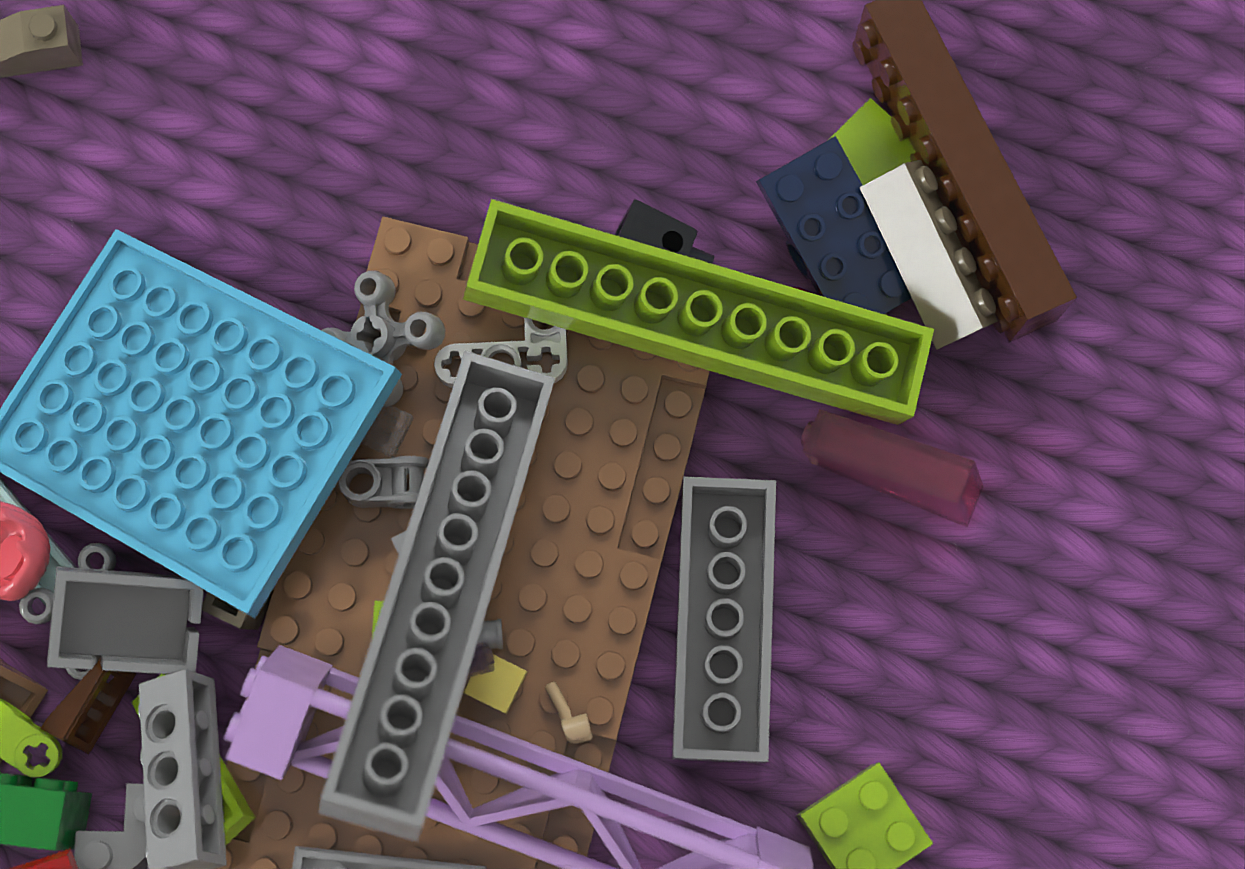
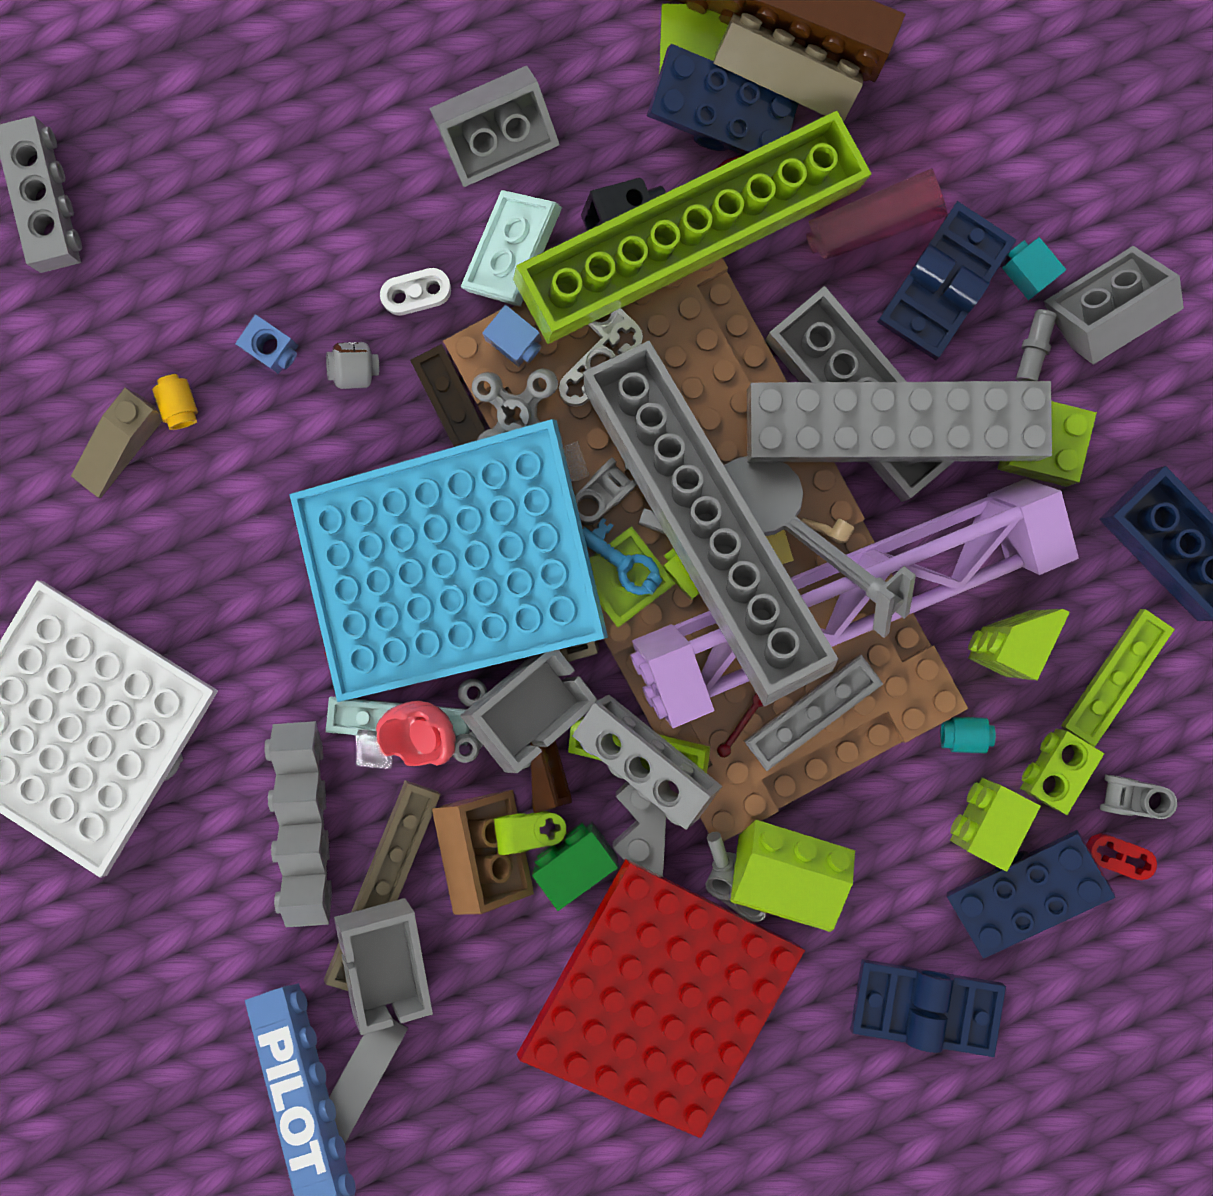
camera: 40 degrees left, 10 degrees up
(99, 58) = (175, 402): none -> yellow brick
(223, 65) = (257, 334): none -> medium blue brick
(270, 835) = (724, 749): none -> dark red hinge
(282, 165) = (351, 365): none -> light grey head
(335, 582) = (612, 595): none -> lime tile
(342, 566) = (595, 541): none -> dark azure piece
(343, 261) = (448, 396): none -> dark brown plate
(406, 153) = (415, 287): none -> white plate
(441, 266) = (513, 336): none -> medium blue brick
(530, 628) = (775, 501): none -> light grey piece
(540, 180) = (513, 234): none -> light aqua tile
(613, 71) = (495, 125): none -> light grey slope
(723, 670) = (899, 421): none -> light grey brick
(907, 585) = (947, 280): none -> dark blue plate
(938, 728) = (1036, 345): none -> light grey pin
(1002, 648) = (1032, 267): none -> teal brick
(1053, 758) = (1116, 303): none -> light grey slope

